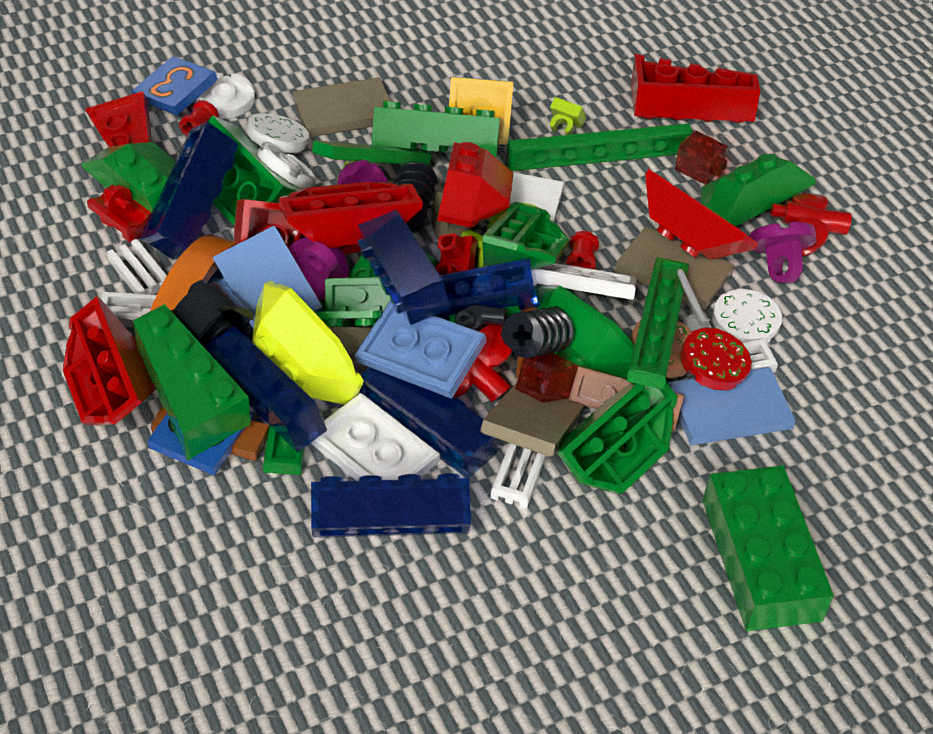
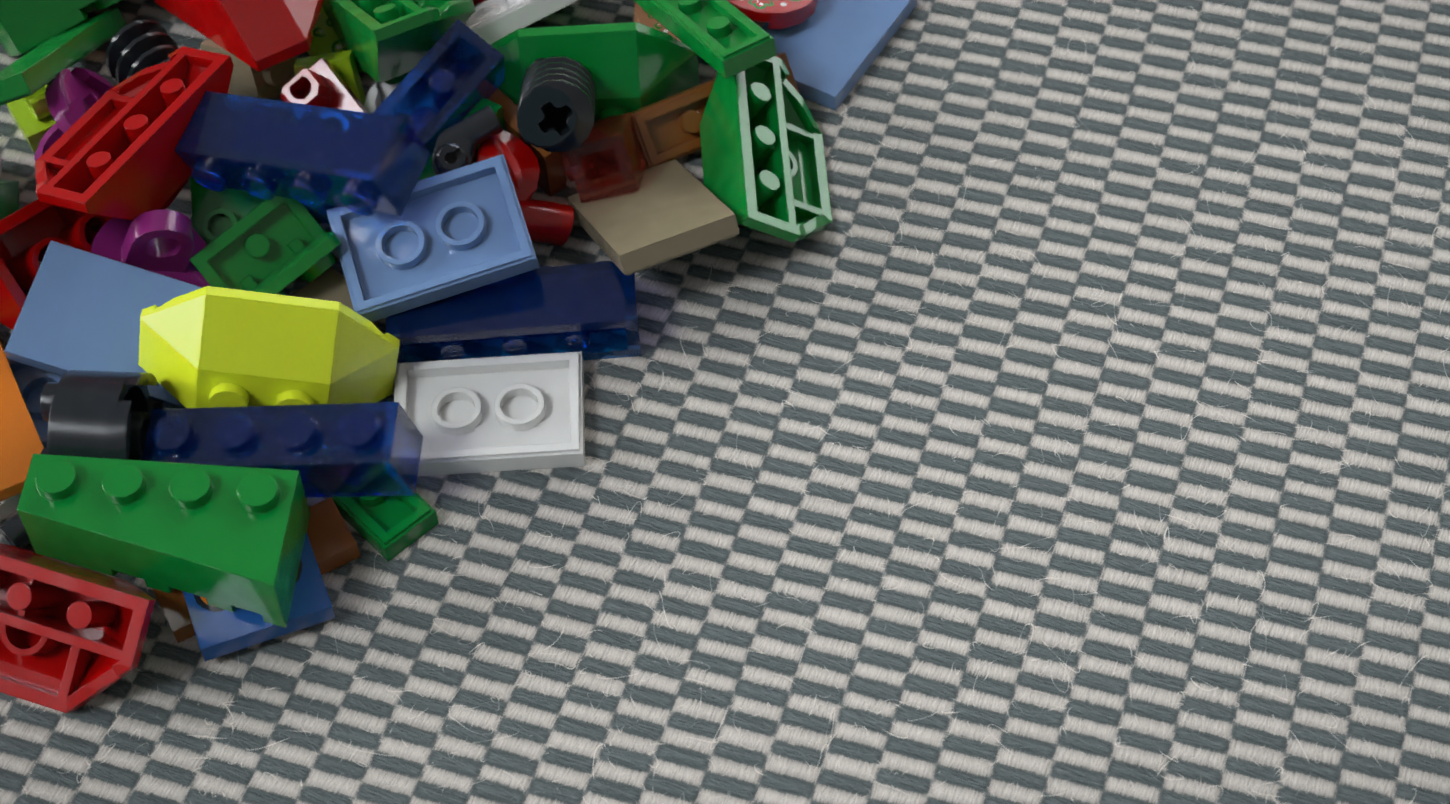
camera: 40 degrees left, 5 degrees up
(390, 506) = (610, 457): clear blue brick -> none
(512, 494) = (711, 326): white tile -> none
(766, 548) = (1053, 147): green brick -> none

